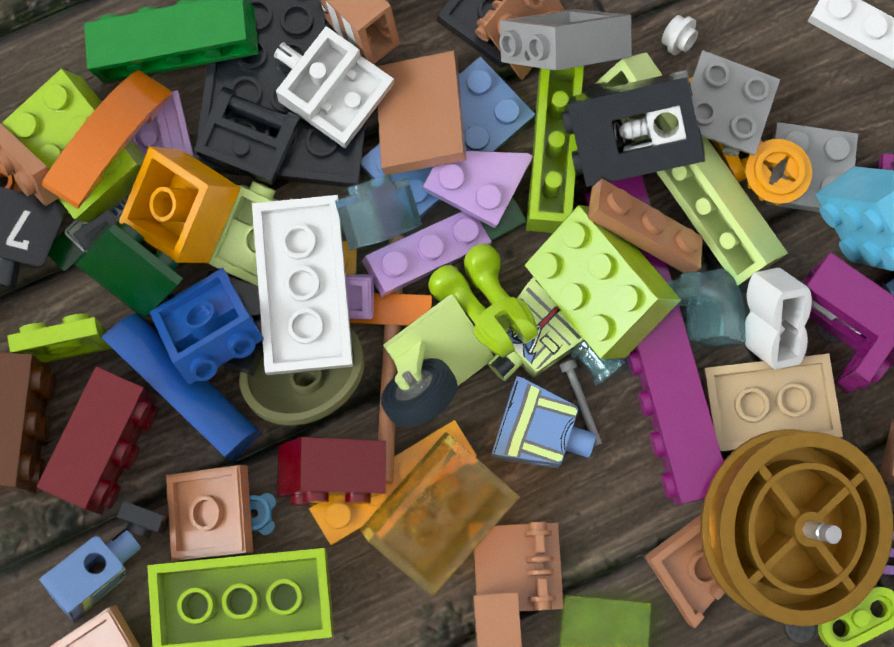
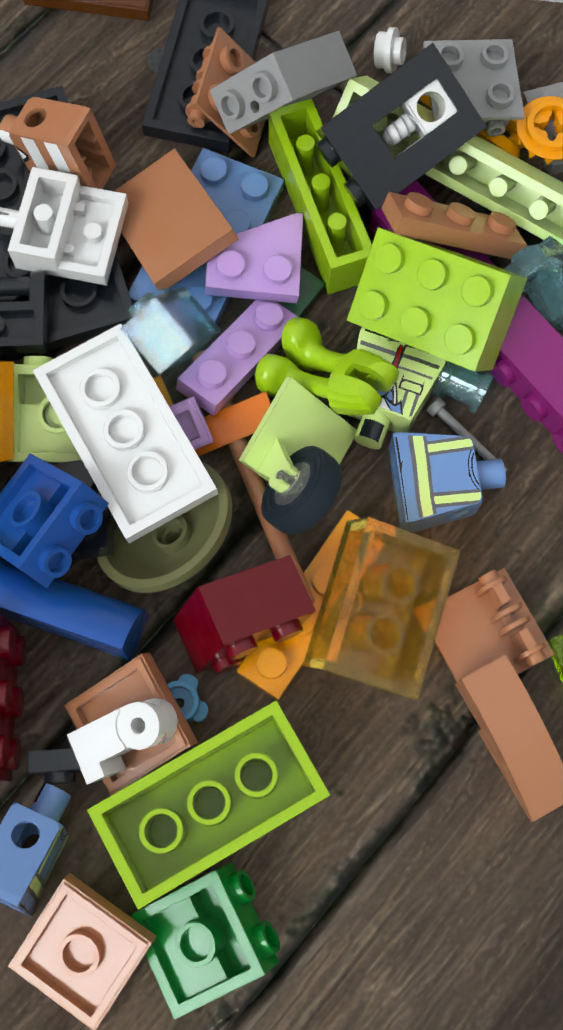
camera: 20 degrees left, 5 degrees down
(205, 518) = (131, 727): none -> white leg

